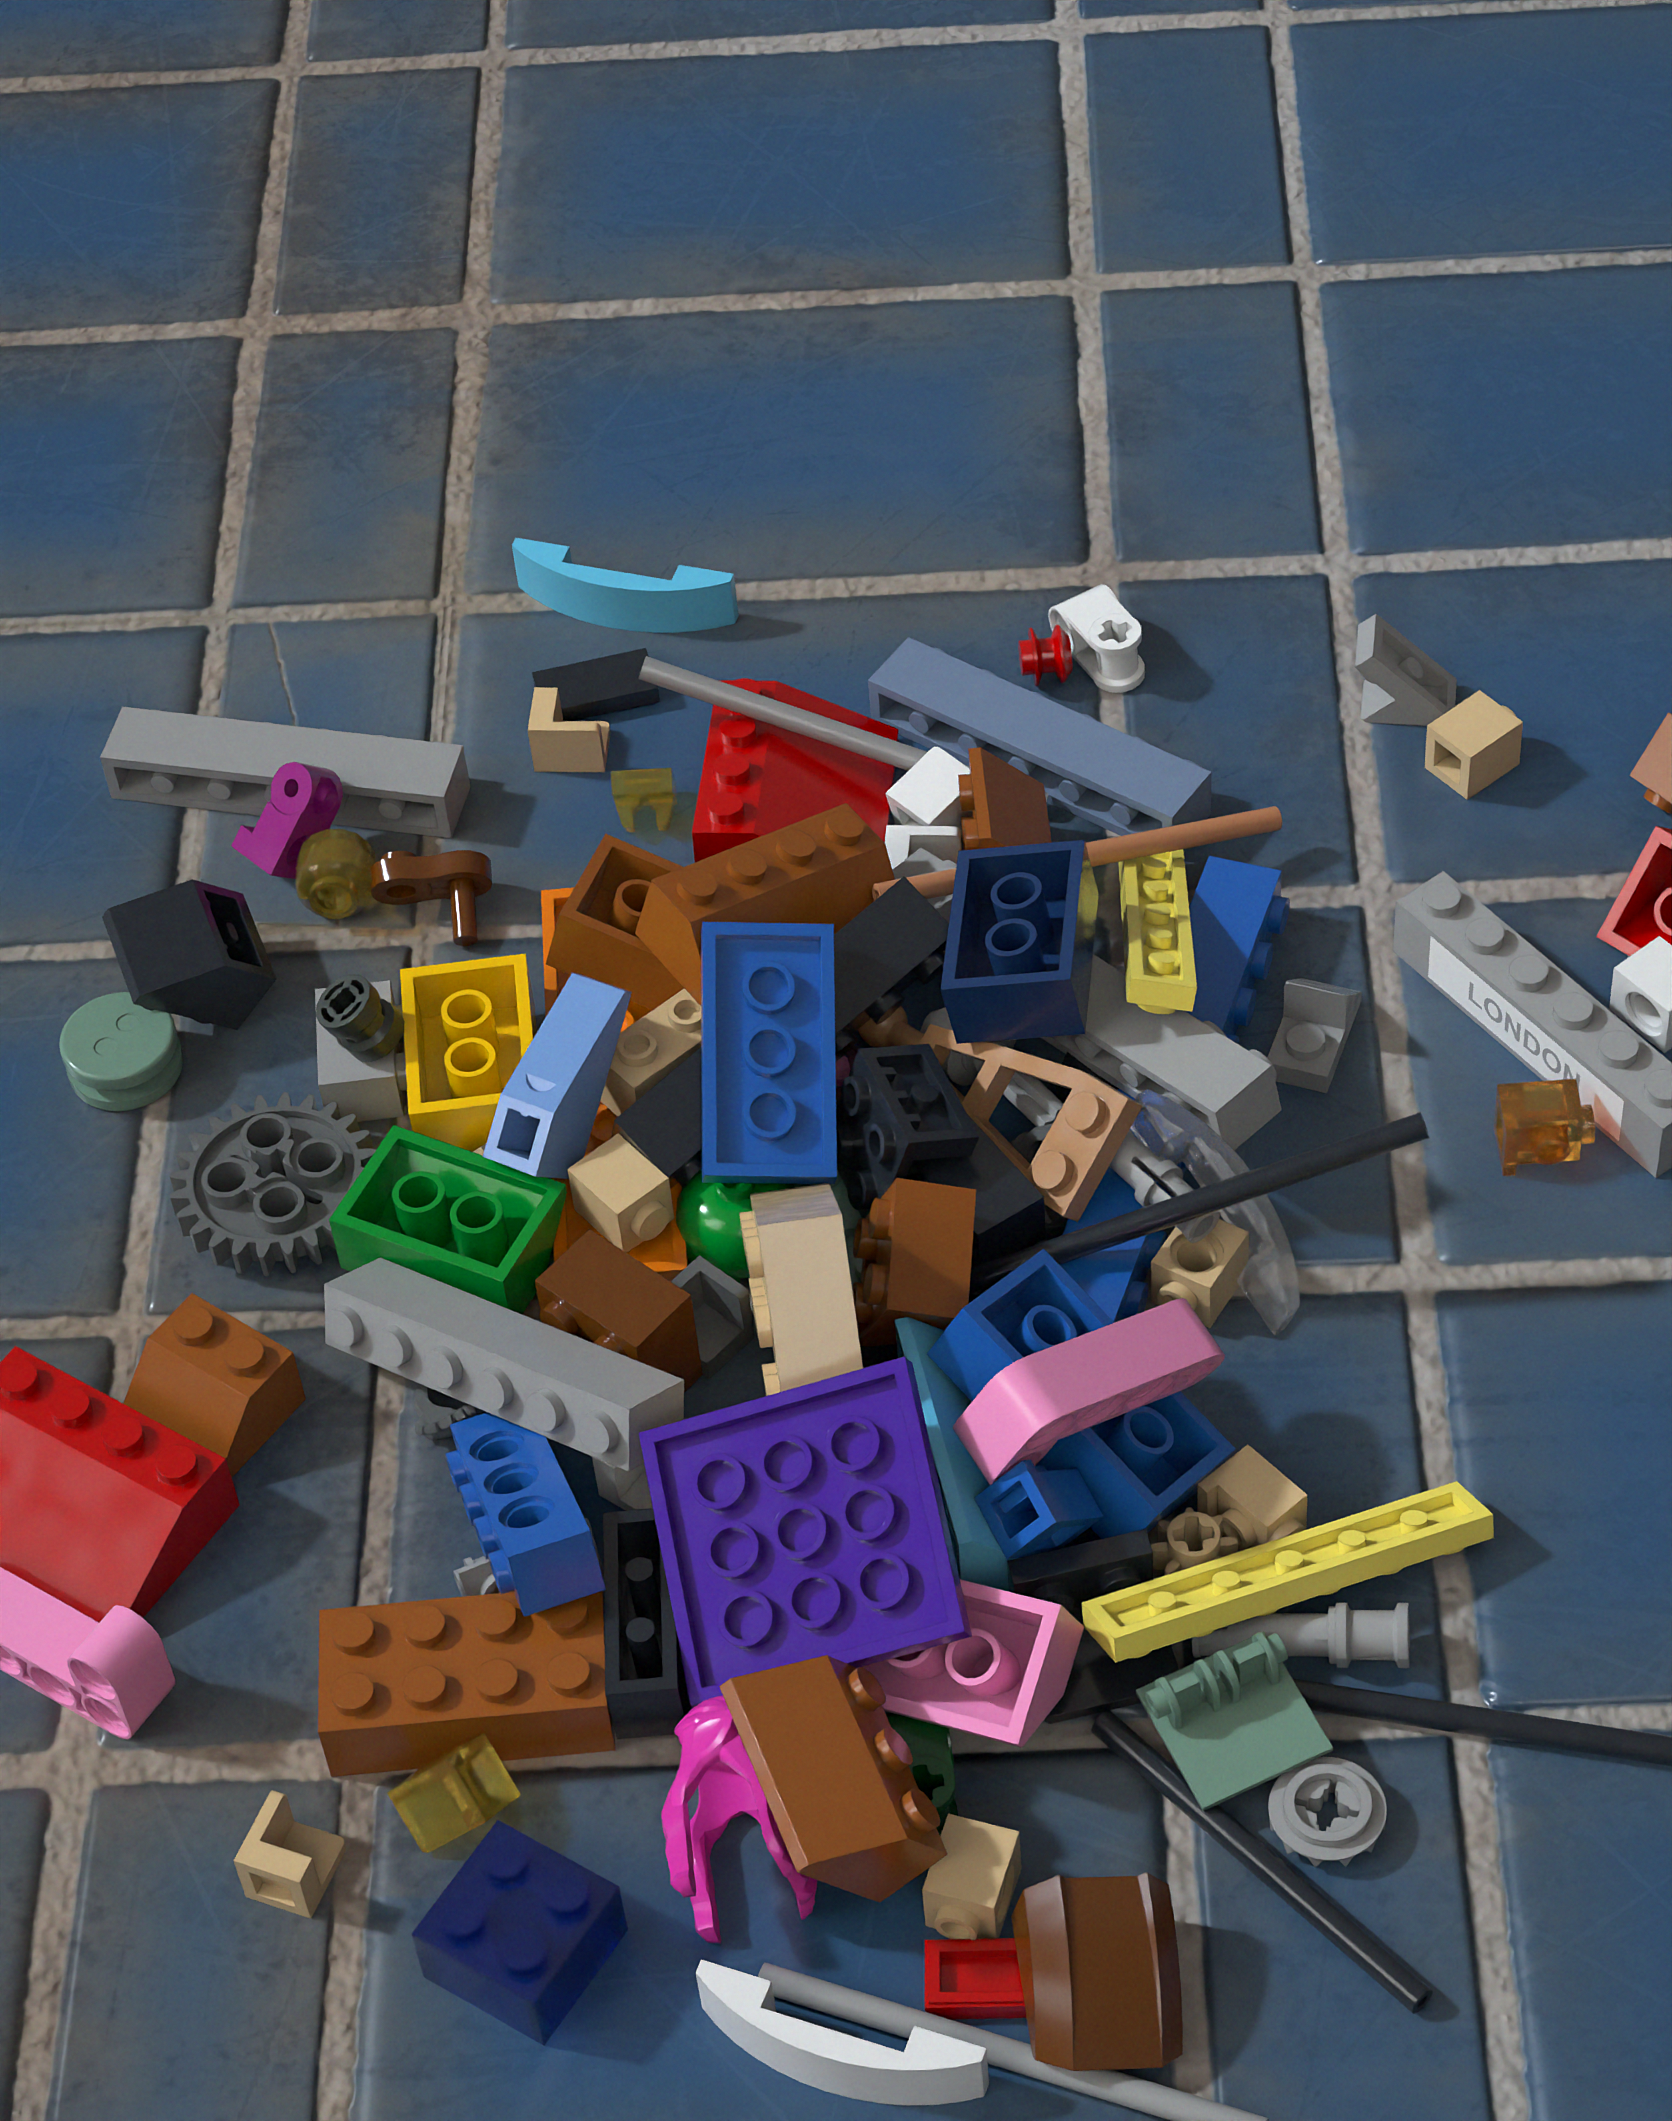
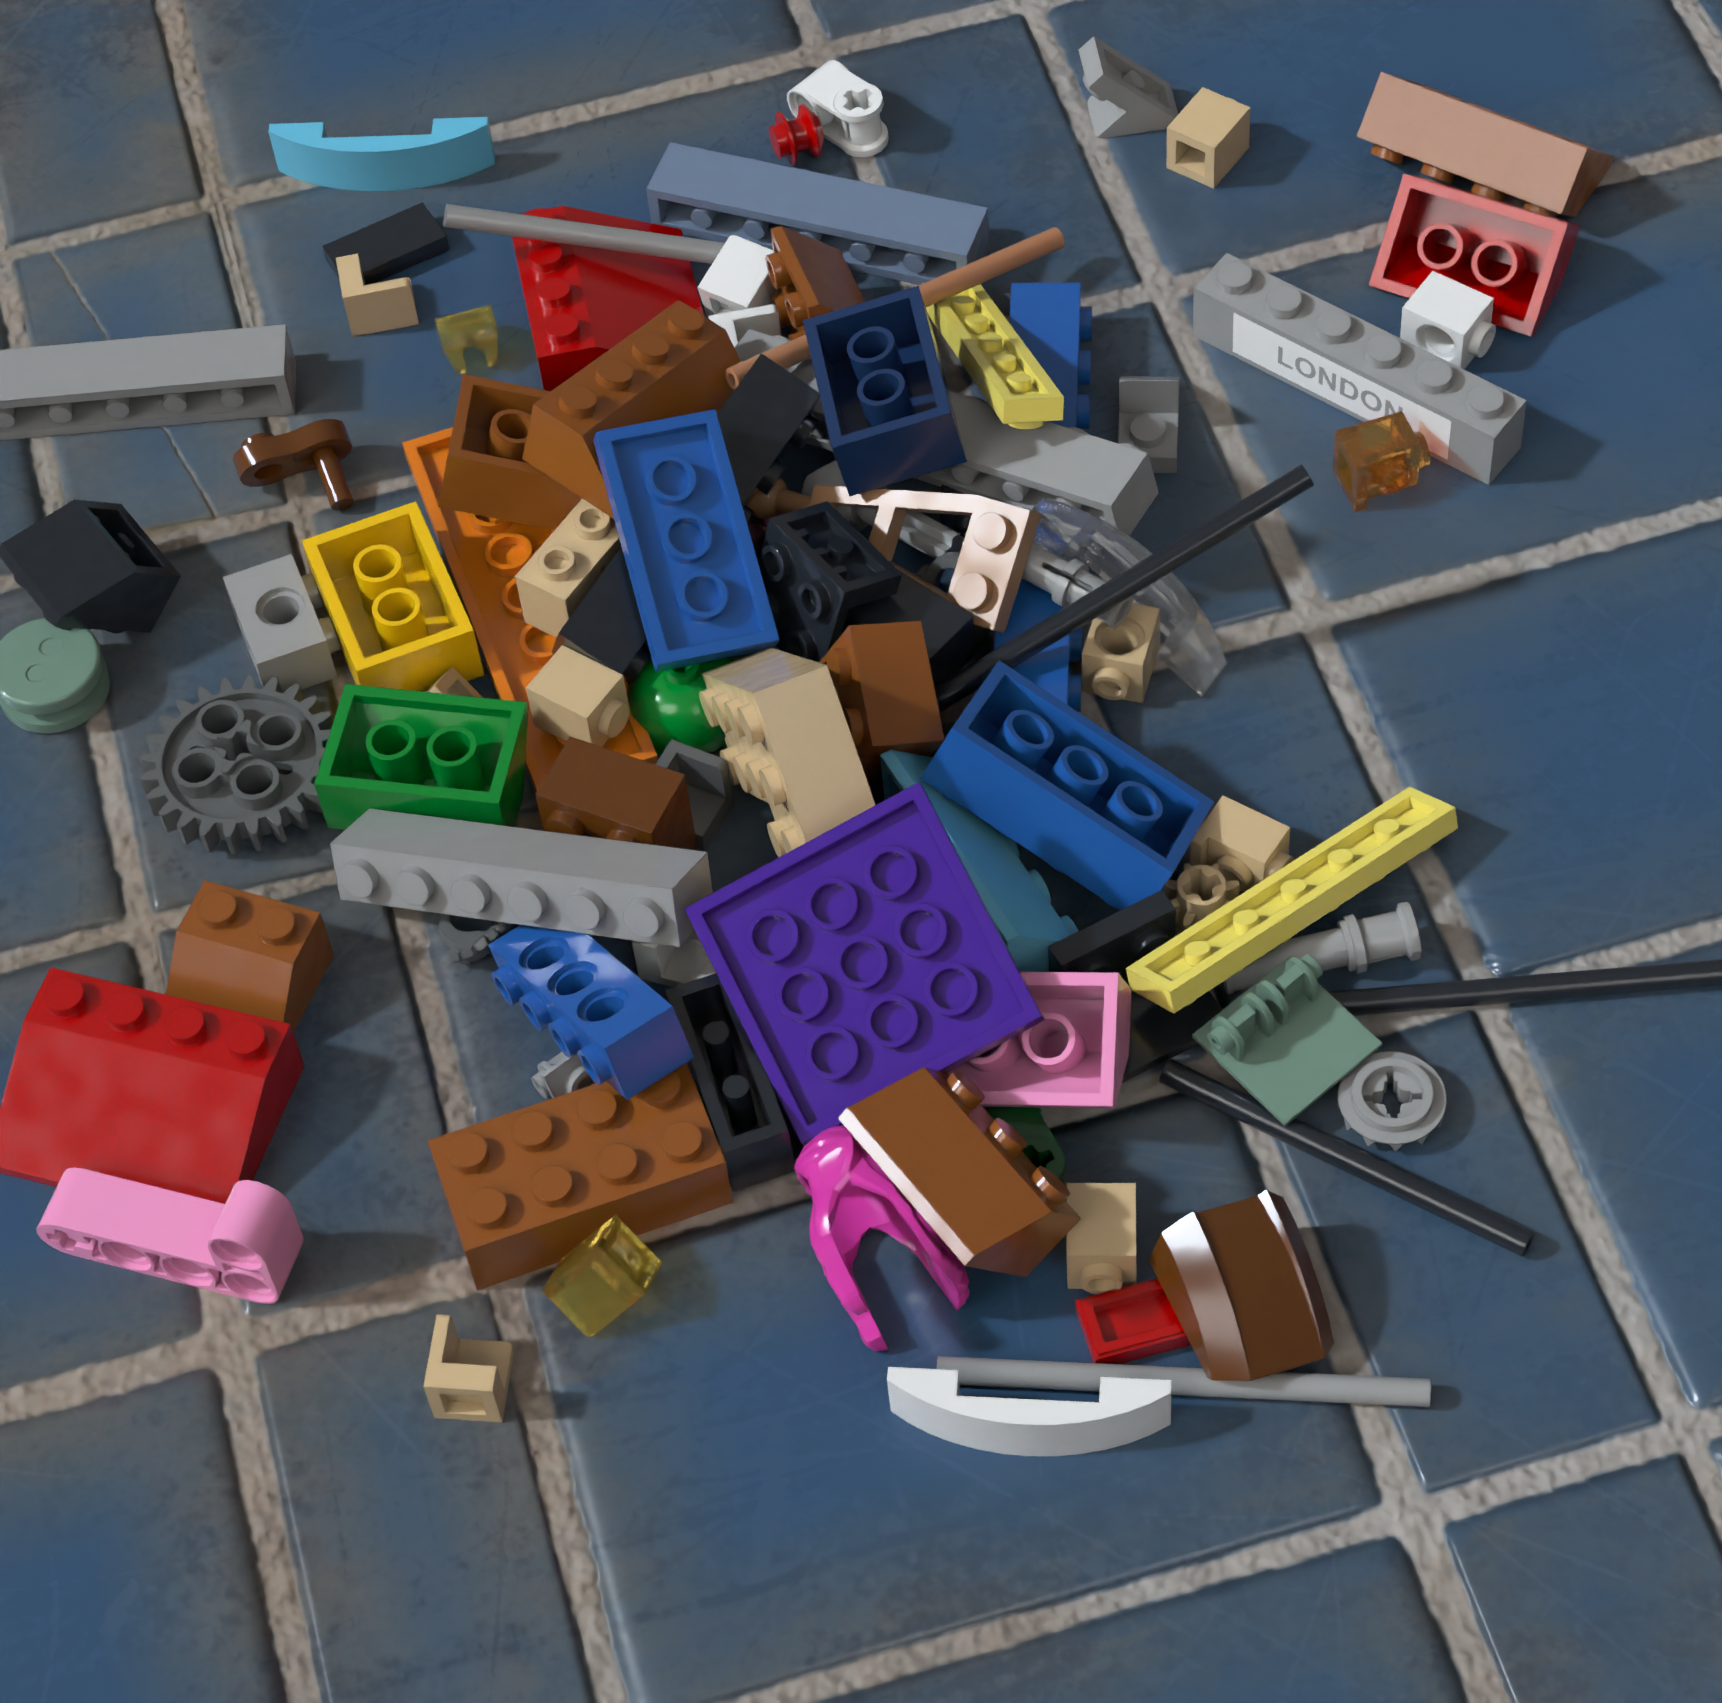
camera: 15 degrees left, 5 degrees up
(300, 804) = (146, 427): magenta leg -> none
(335, 873) = (200, 467): clear yellow head -> none
(358, 1016) = (282, 592): pearl dark grey wheel -> none
(520, 1932) = (708, 1384): clear blue brick -> none
(559, 1082) = (495, 608): medium blue slope -> none
(1037, 1509) = (1063, 894): blue brick -> none
(1085, 1384) = (1075, 776): bright pink beam -> none

